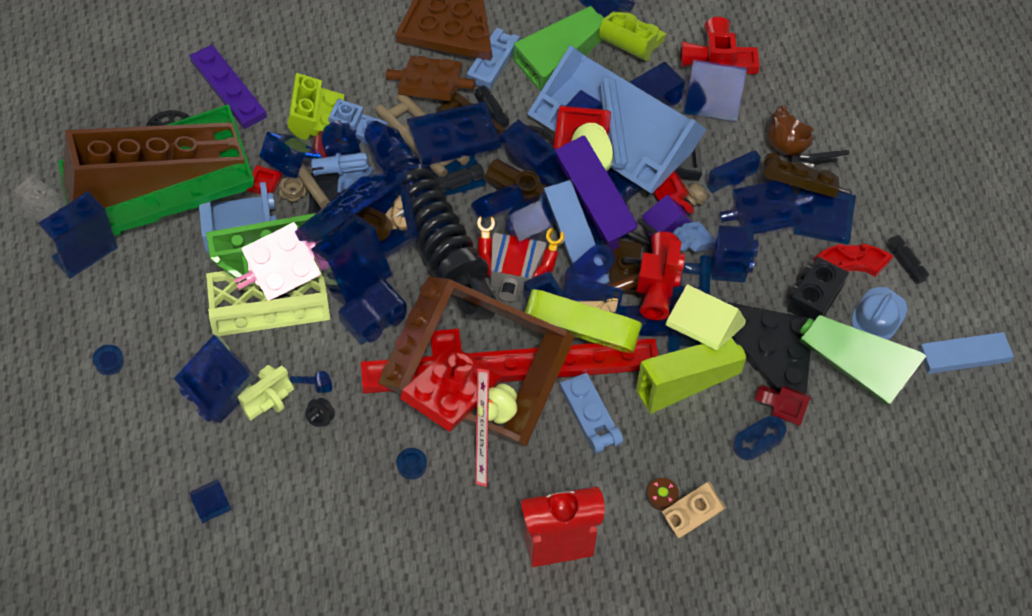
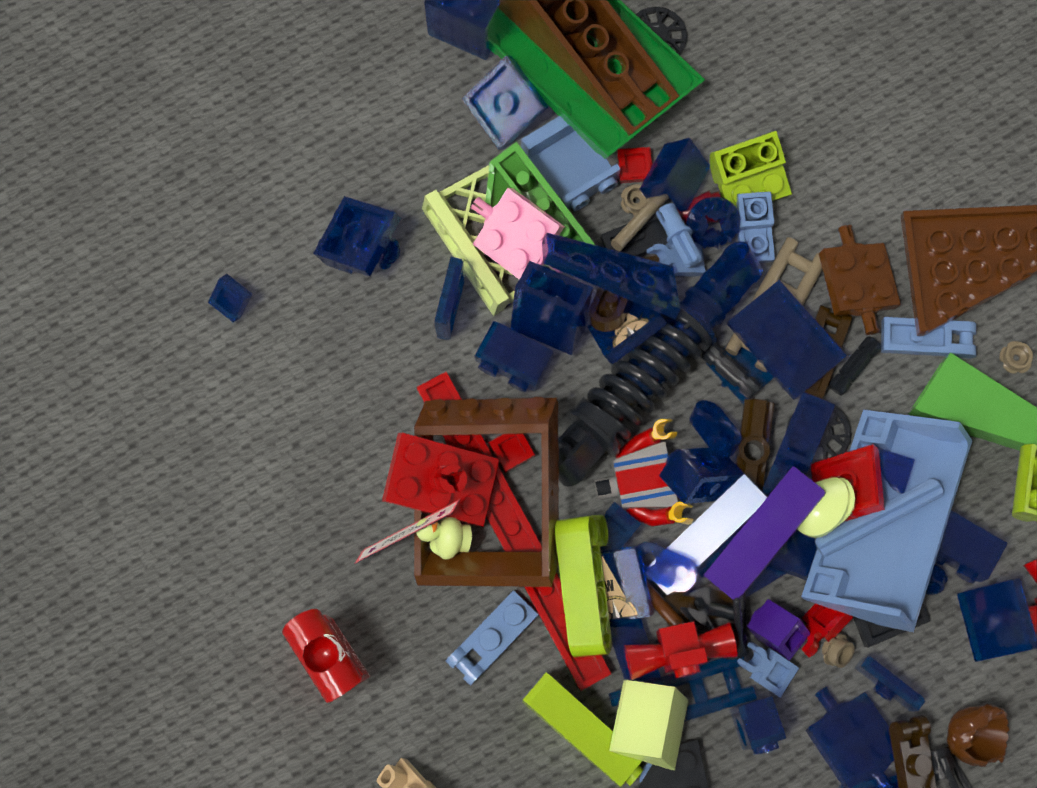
camera: 70 degrees right, 20 degrees up
(108, 359) = (348, 121): clear blue tile -> none
(164, 239) = (505, 102): none -> clear blue tile
(228, 86) = (744, 64): dark purple plate -> none
(267, 393) = (371, 296): yellowish green hips -> none
(304, 331) = (450, 298): none -> clear blue tile
(315, 417) = (372, 357): black plate -> none
(321, 380) = (410, 343): clear blue hand -> none
(411, 463) = (356, 475): clear blue tile -> none
(533, 16) = (1024, 353): none -> dark tan plate
(633, 252) = (708, 607): none -> black bar
(662, 493) = (426, 750): reddish brown tile -> none

